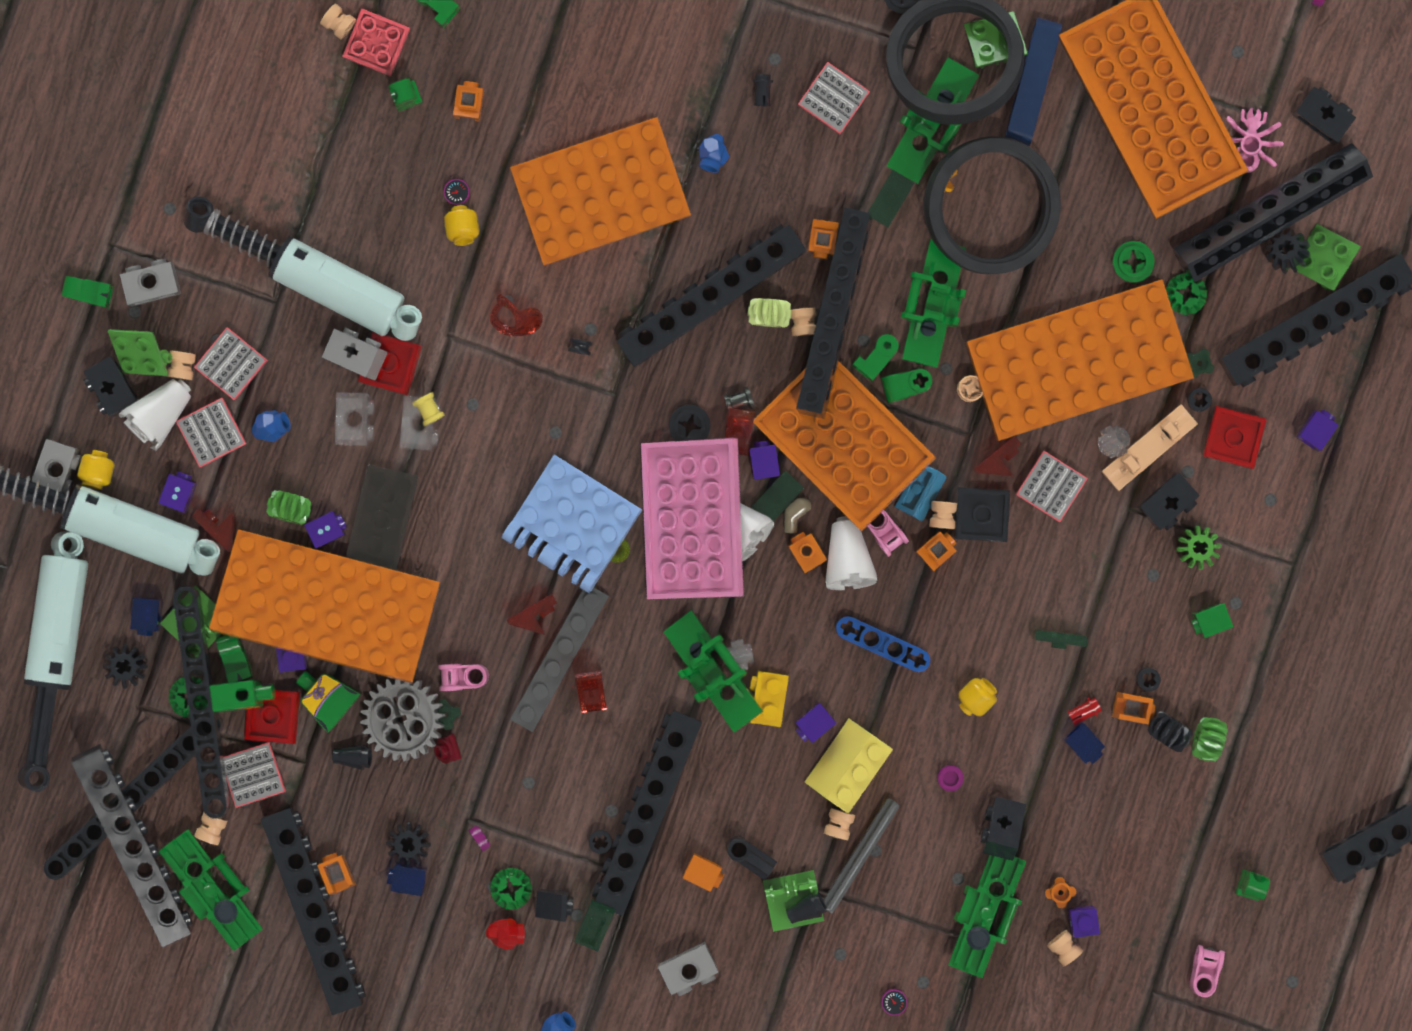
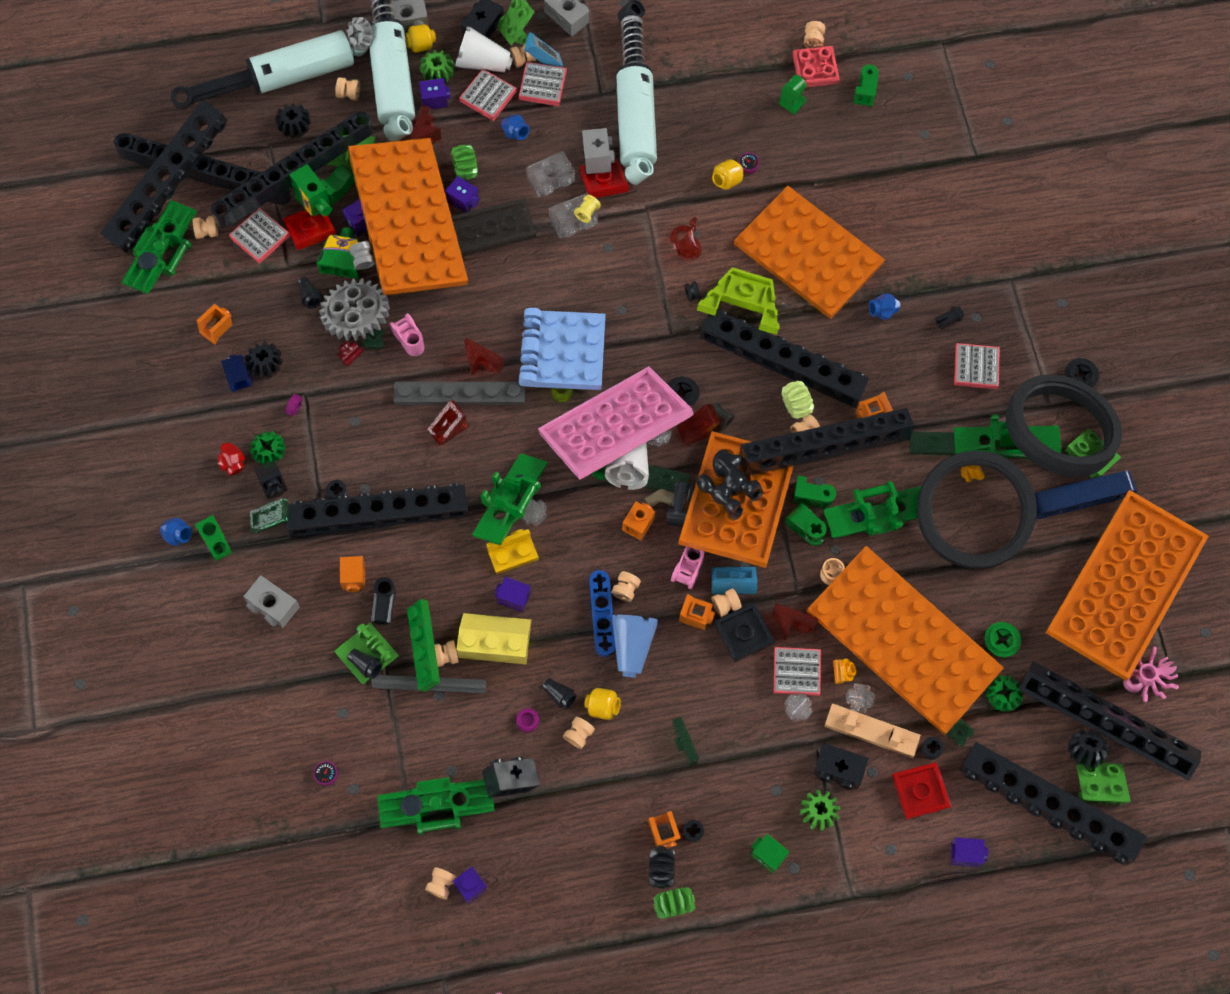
camera: 60 degrees right, 20 degrees down
(58, 537) = (364, 39): none -> light grey gear
(120, 579) = (347, 89): none -> light nougat wheel
(143, 480) = (437, 66): none -> bright green gear
(146, 616) = (334, 113): clear blue brick -> none
(194, 342) = (542, 51): none -> dark azure slope
(337, 999) = (167, 324): black brick -> none
(351, 681) = (362, 255): none -> light grey wheel
(468, 101) = (816, 137): orange window -> none
(585, 993) = (213, 538): none -> green leg
(615, 290) = (745, 291): none -> lime wing
(764, 460) = (687, 455): dark purple brick -> none
(819, 504) = (678, 510): none -> black piece
(821, 842) = (423, 645): none -> green plate
(833, 439) = (734, 483): none -> black animal
(848, 558) = (650, 550): white cone -> none
(874, 610) = (626, 586): none -> light nougat wheel
(932, 632) = (632, 642): none -> medium blue cone
(943, 732) = (559, 693): none -> black cone
(993, 736) = (579, 732): none -> light nougat wheel
(1068, 892) = (479, 851): orange plate -> none
(1076, 439) = (843, 671): none -> light orange plate
(1084, 711) = (641, 795): red pin -> none
(1084, 744) = (613, 807): clear blue brick -> none
(1088, 507) = (798, 707): none -> clear gear
(1311, 114) = (1199, 729): black brick -> none

